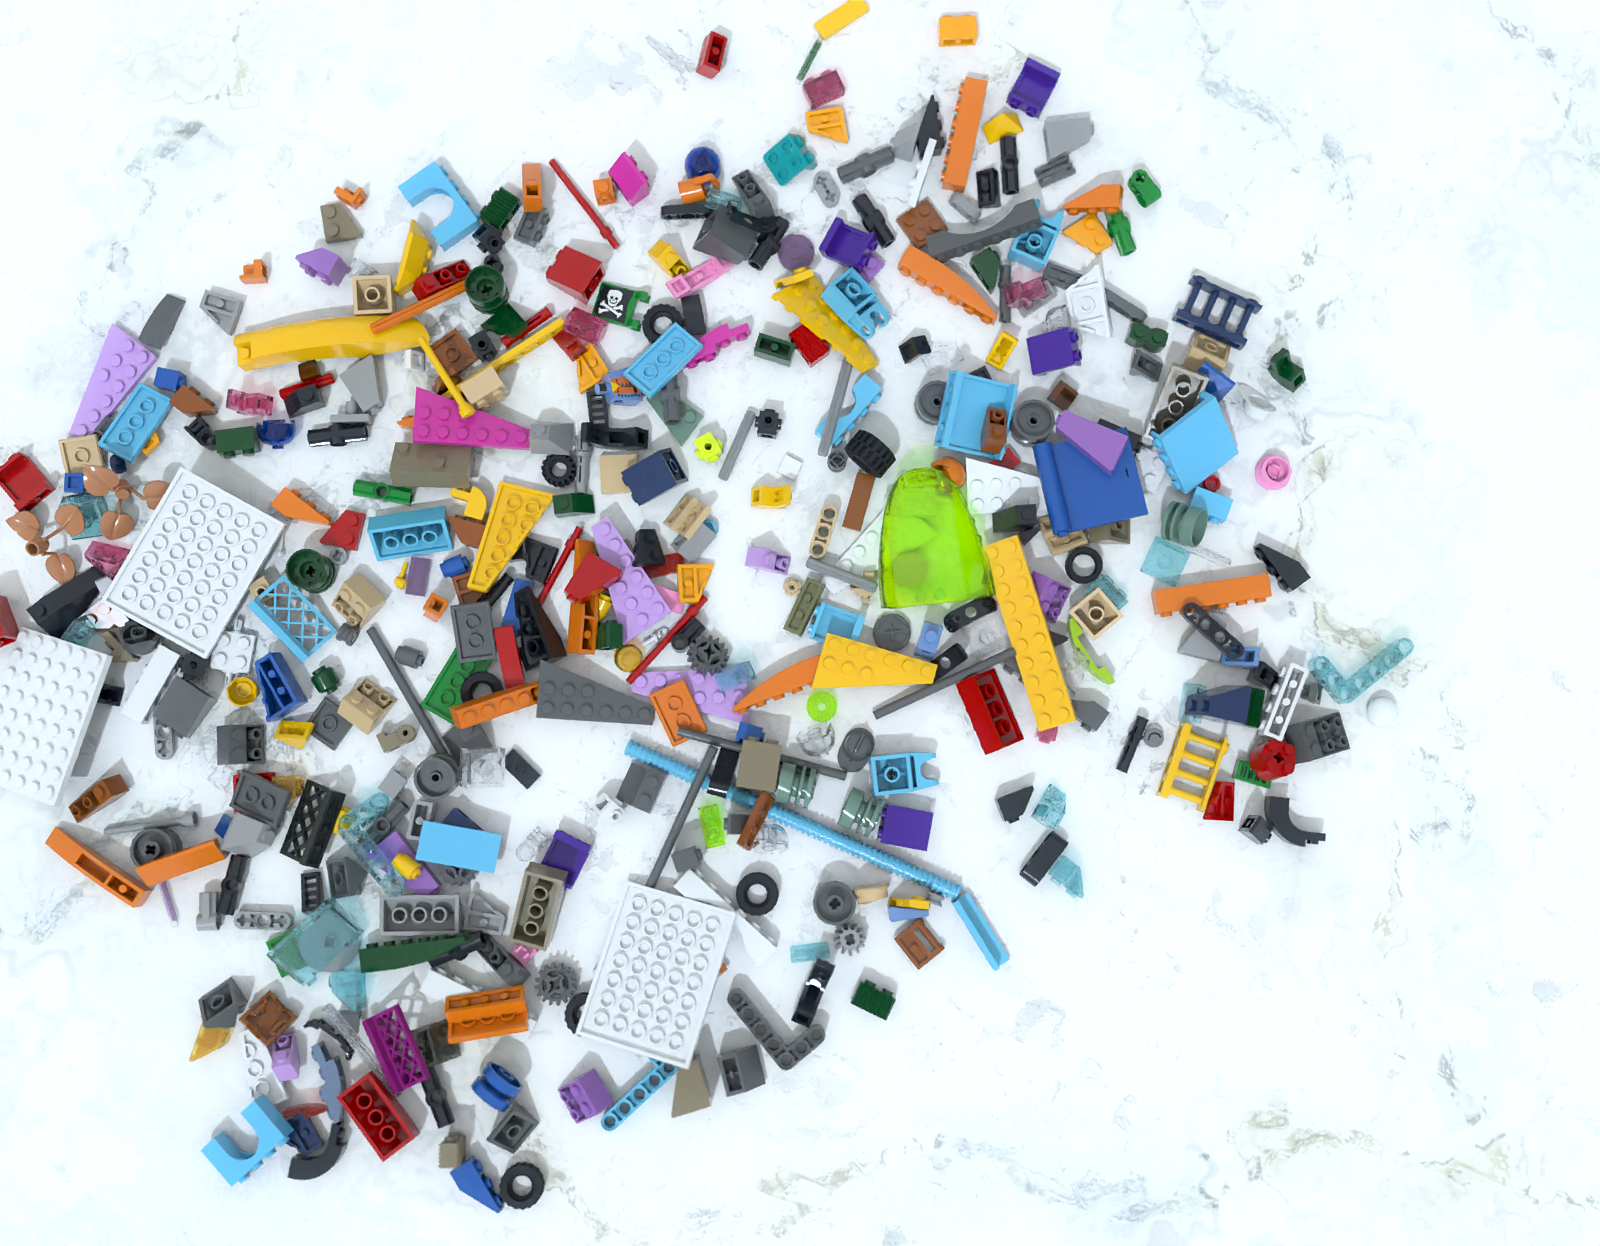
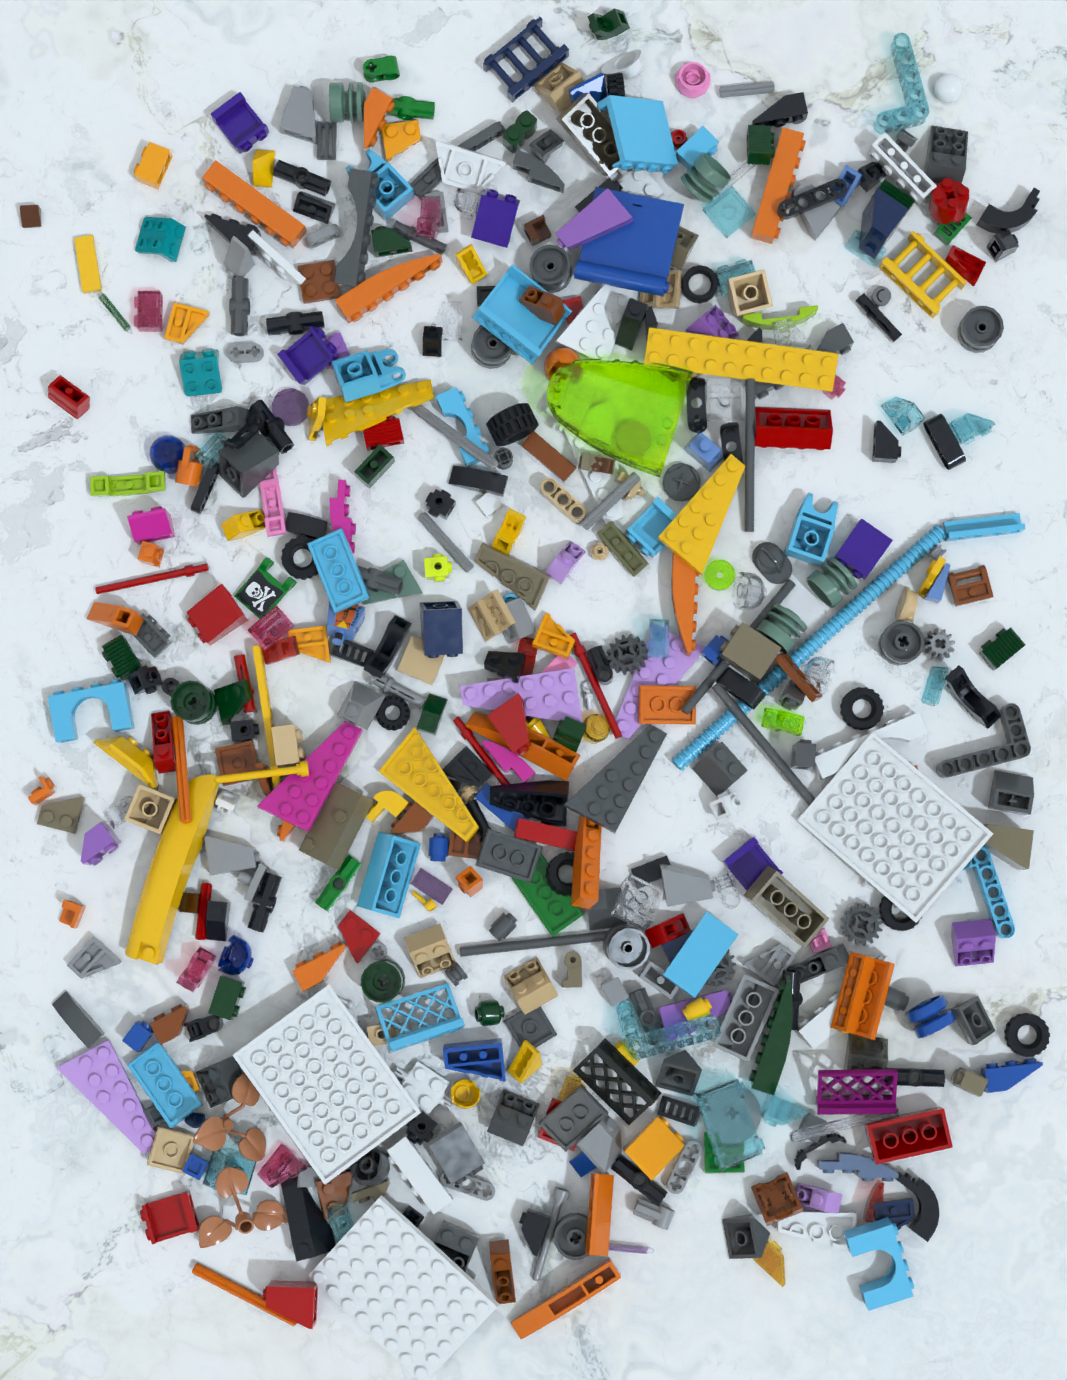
camera: 60 degrees left, 0 degrees up
(102, 745) = (457, 1243): none -> dark grey slope
(148, 808) = (534, 1227): none -> black slope
(160, 466) = (218, 1080): none -> dark grey slope
(266, 884) = (654, 1146): none -> light orange slope
(471, 807) = (667, 930): none -> red slope
(501, 1047) = (896, 999): none -> dark grey brick
(516, 570) = (468, 793): none -> tan plate
(519, 804) = (685, 885): none -> light grey slope
(561, 605) = (508, 761): none -> dark pink slope
(657, 142) = (128, 485): none -> lime slope
(735, 523) = (514, 574): none -> dark tan wing
(806, 449) = (478, 480): none -> black slope
(869, 545) = (596, 463): none -> leg
(895, 68) = (160, 237): none -> teal bracket
(1096, 168) = (346, 102): none -> sand green wheel
(1117, 370) = (537, 171): none -> dark grey slope
(1177, 846) = (979, 319): none -> dark grey wheel
(1231, 403) = (615, 85): none -> black tyre
(1240, 559) = (759, 145): none -> dark green brick
(1288, 525) = (746, 89): none -> light grey axle

